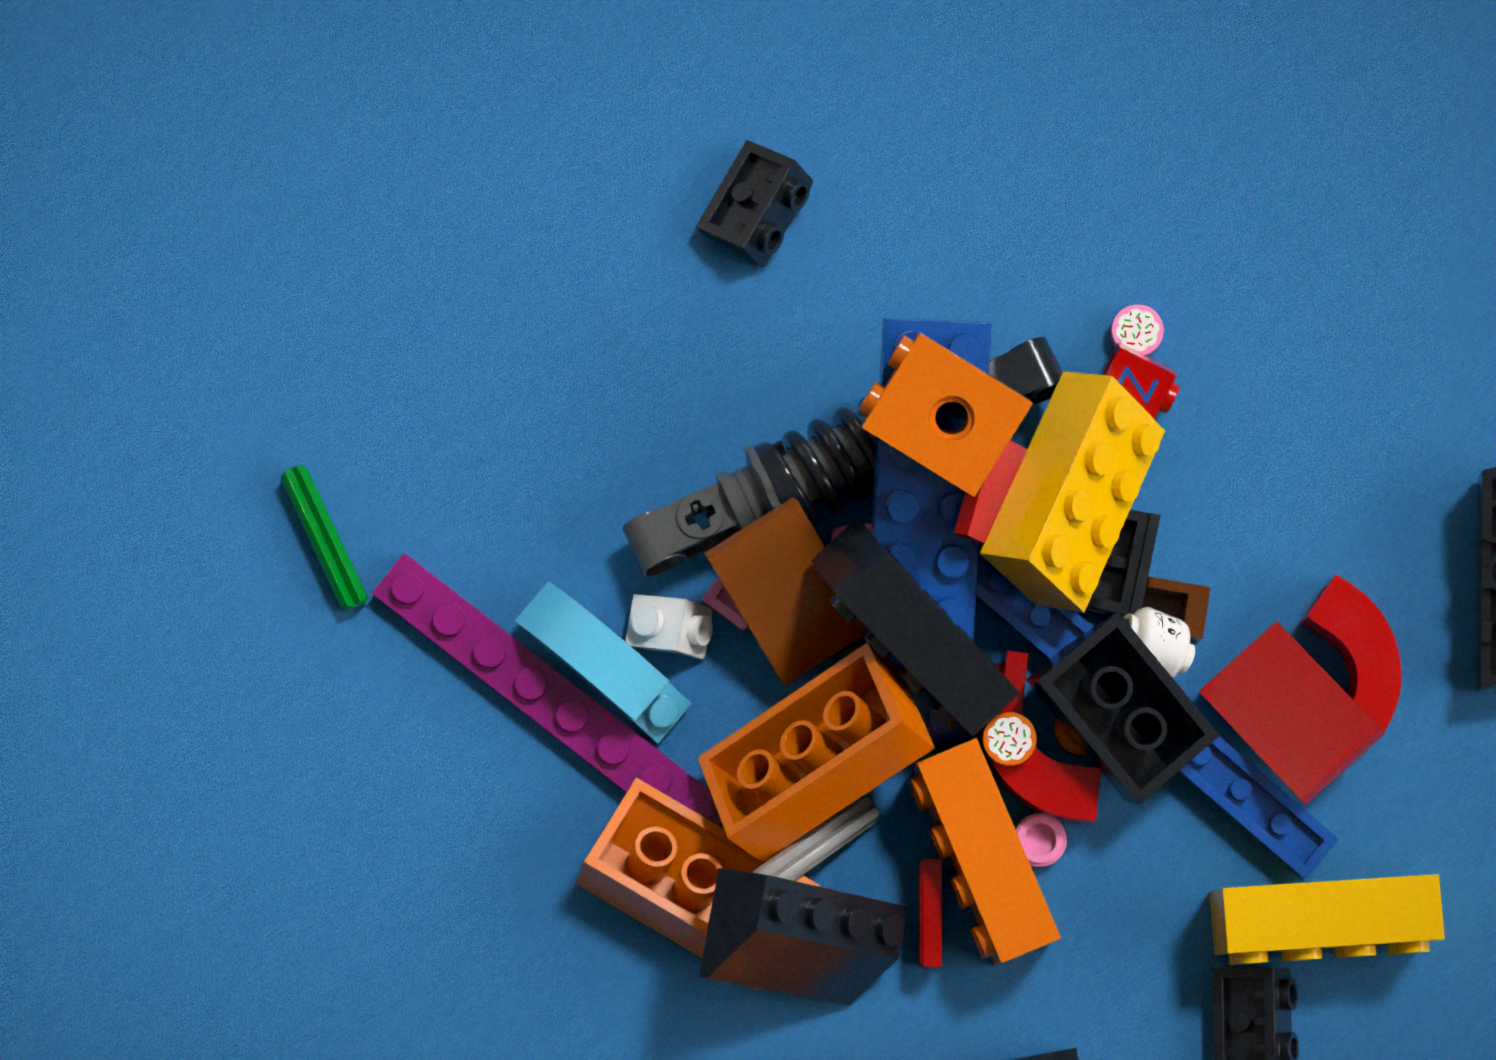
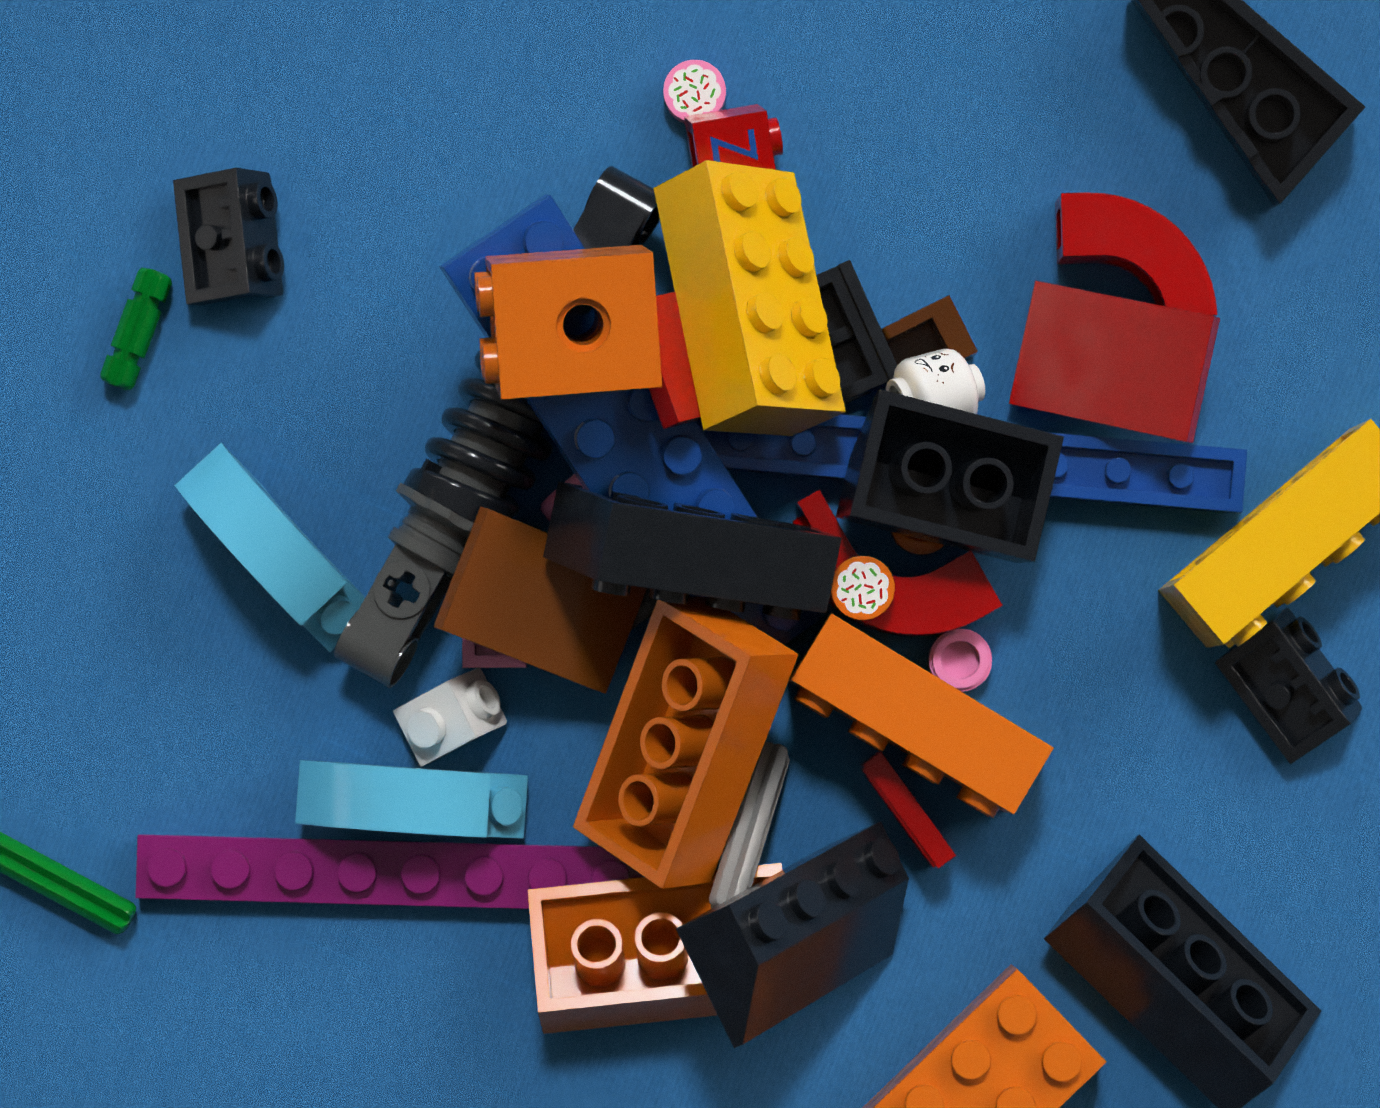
camera: 35 degrees left, 5 degrees up
(634, 425) = (270, 545): none -> medium azure arch
(650, 219) = (135, 328): none -> green axle

